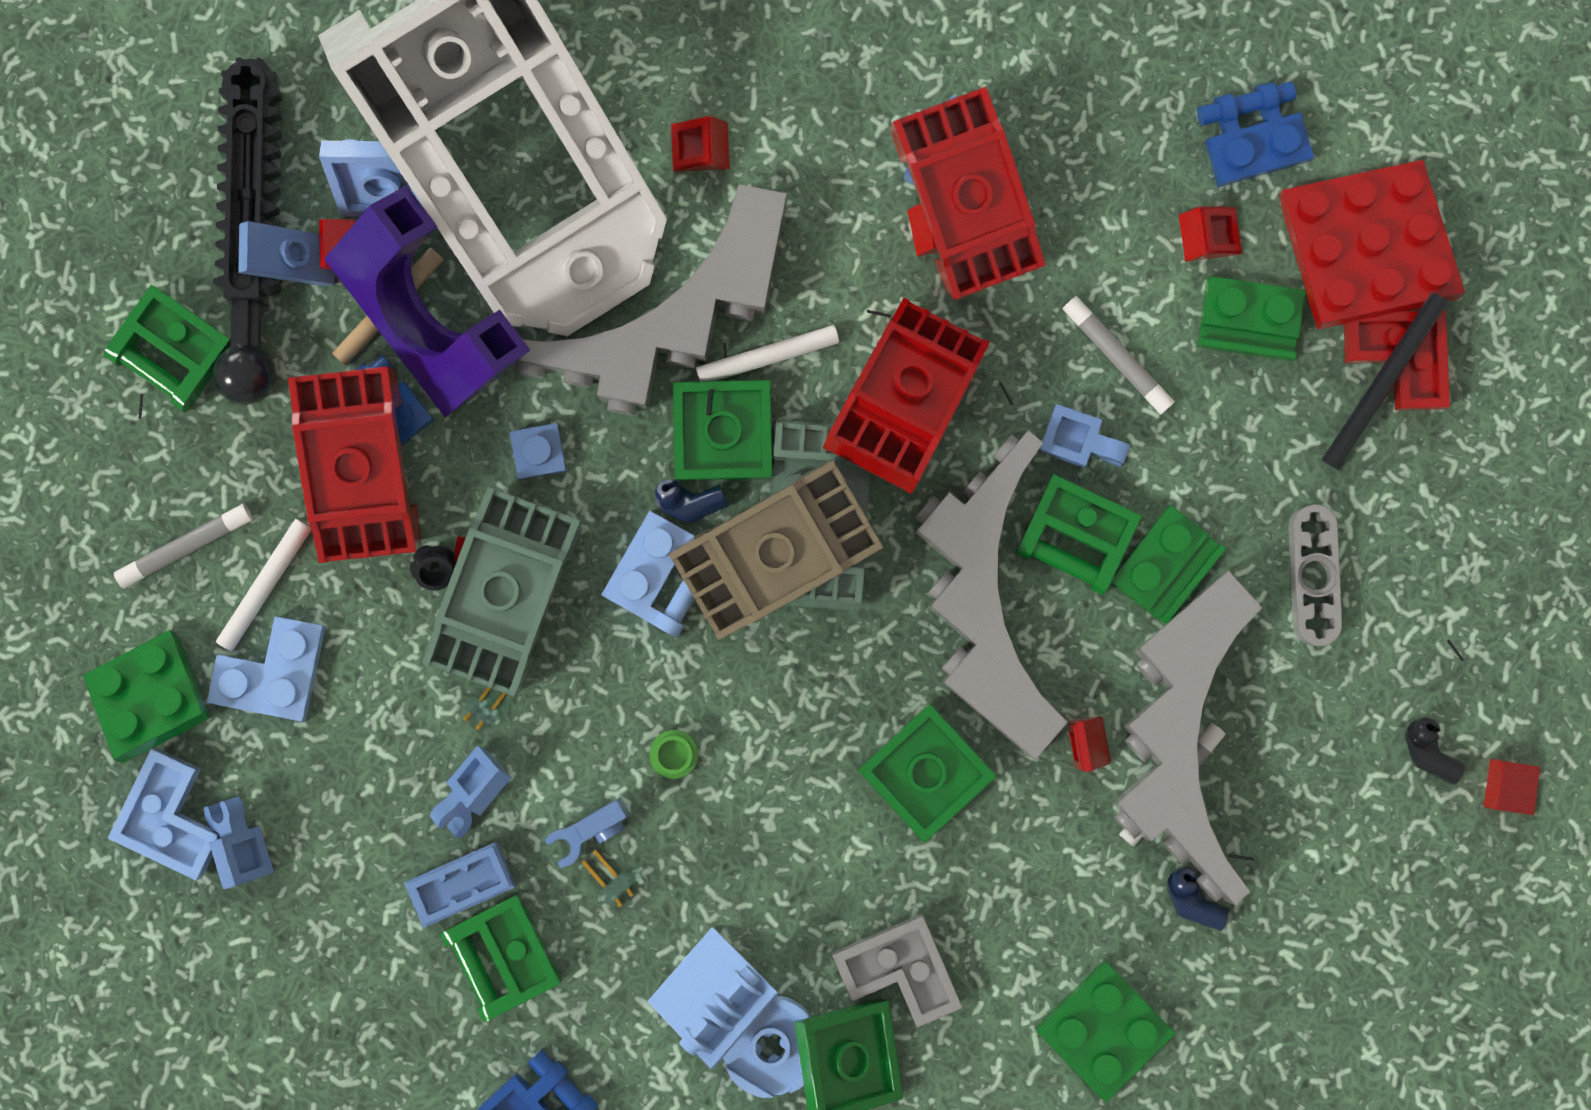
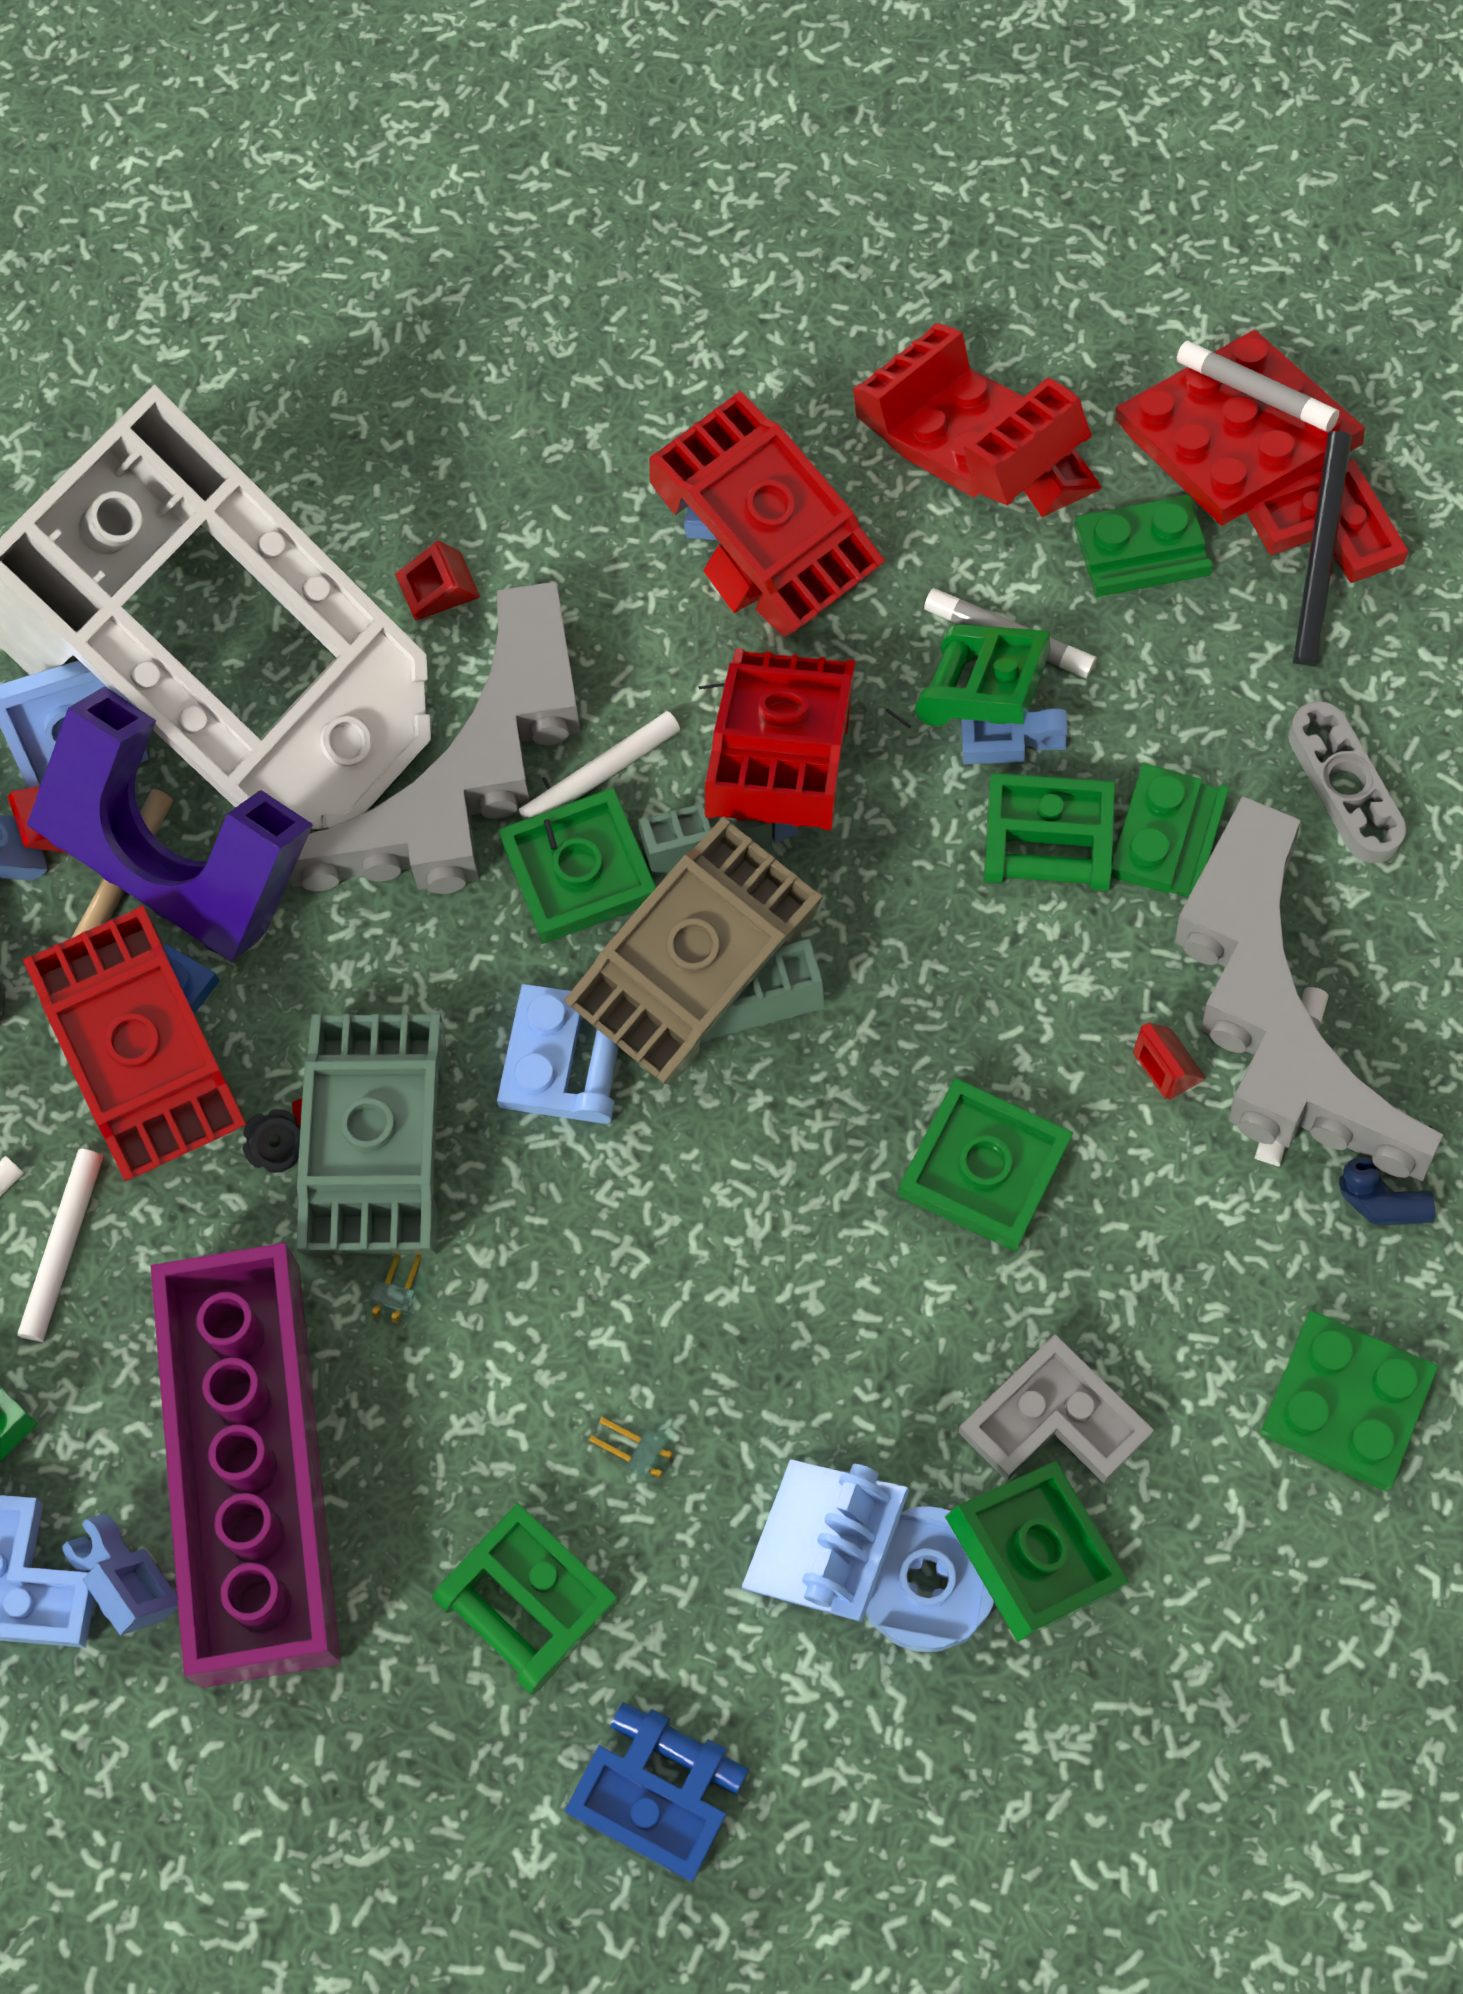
camera: 20 degrees left, 20 degrees down
(282, 683) = (111, 1364): light blue plate -> none
(339, 803) = (243, 1467): none -> magenta brick
(460, 884) = (438, 1522): medium blue plate -> none
(473, 789) = (412, 1388): medium blue plate -> none
(538, 451) = (360, 968): medium blue plate -> none
(601, 824) = (594, 1372): medium blue plate -> none
(673, 754) = (659, 1259): bright green plate -> none
(686, 505) = (559, 965): dark blue arm -> none
(969, 537) = (950, 947): light grey arch -> none
(1093, 402) = (1001, 680): none -> green plate
(1161, 165) = (966, 424): none -> red plate
(1257, 148) = (1084, 366): blue plate -> none
(1397, 224) = (1258, 386): none -> light grey bar

